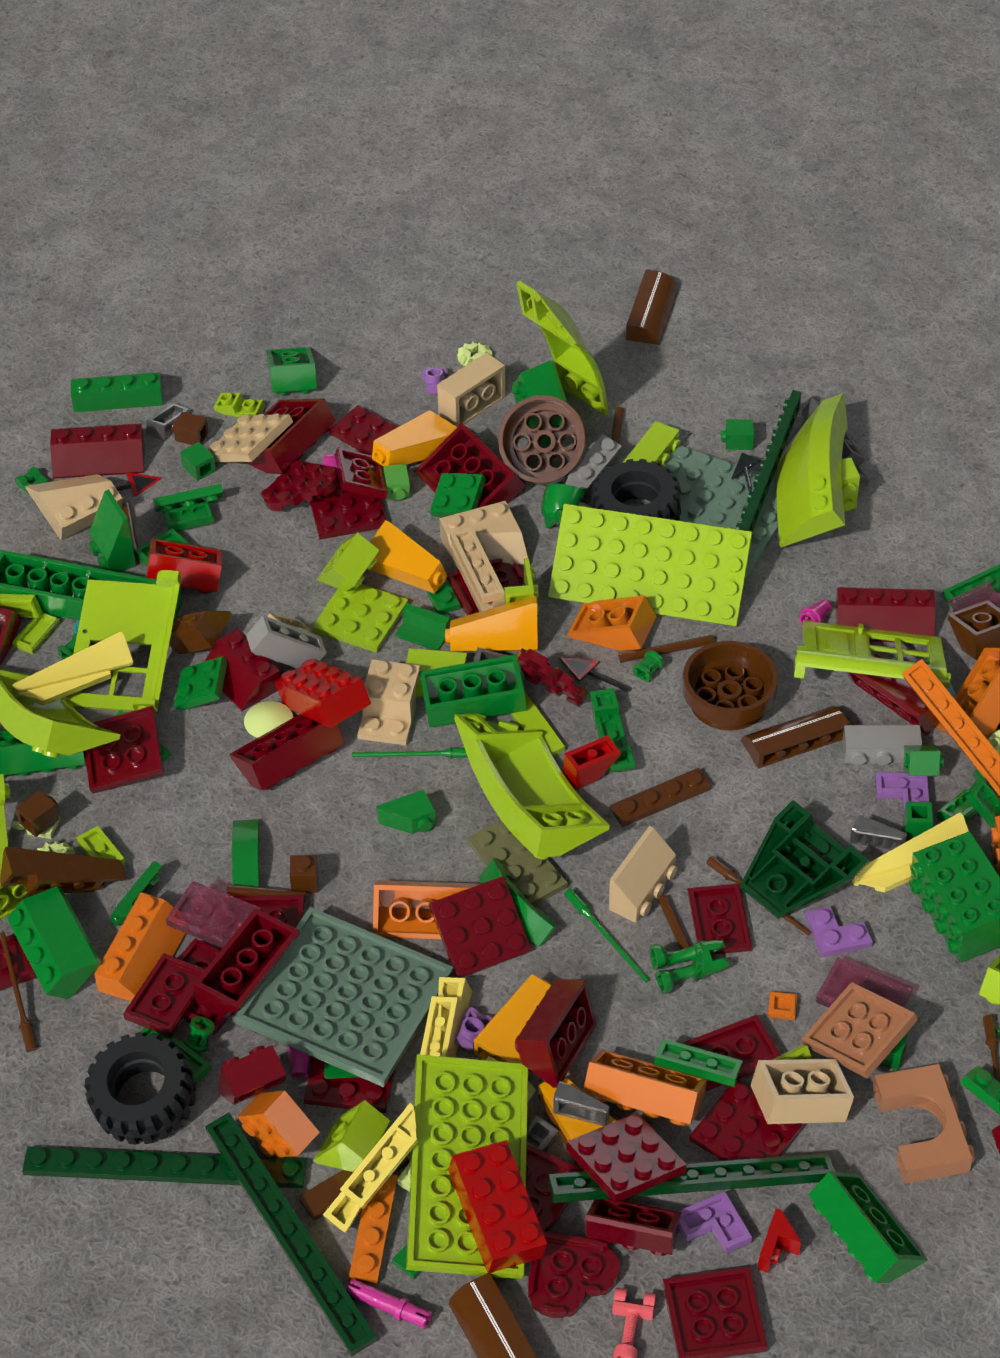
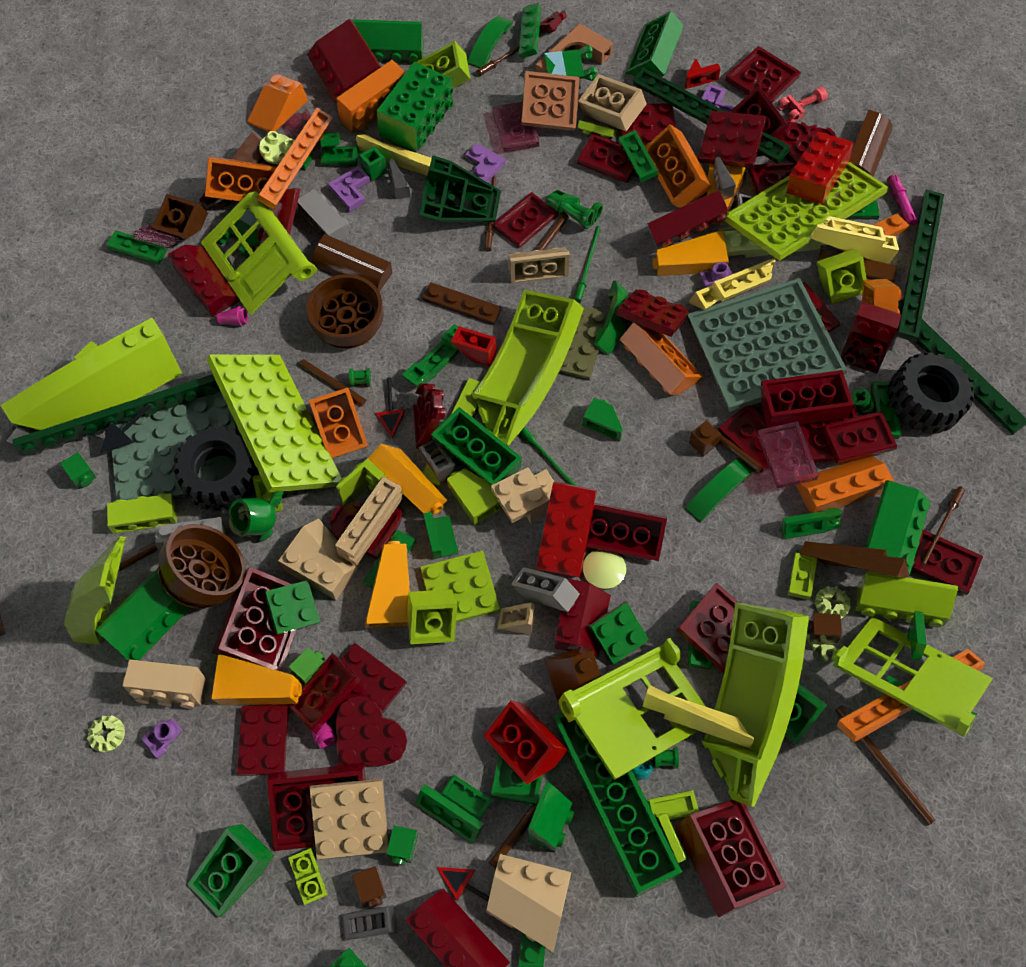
camera: 130 degrees left, 15 degrees up
(782, 1005) = (556, 158): orange tile -> none
(907, 1089) = (570, 63): none -> green flag
(922, 760) = (324, 183): green brick -> none

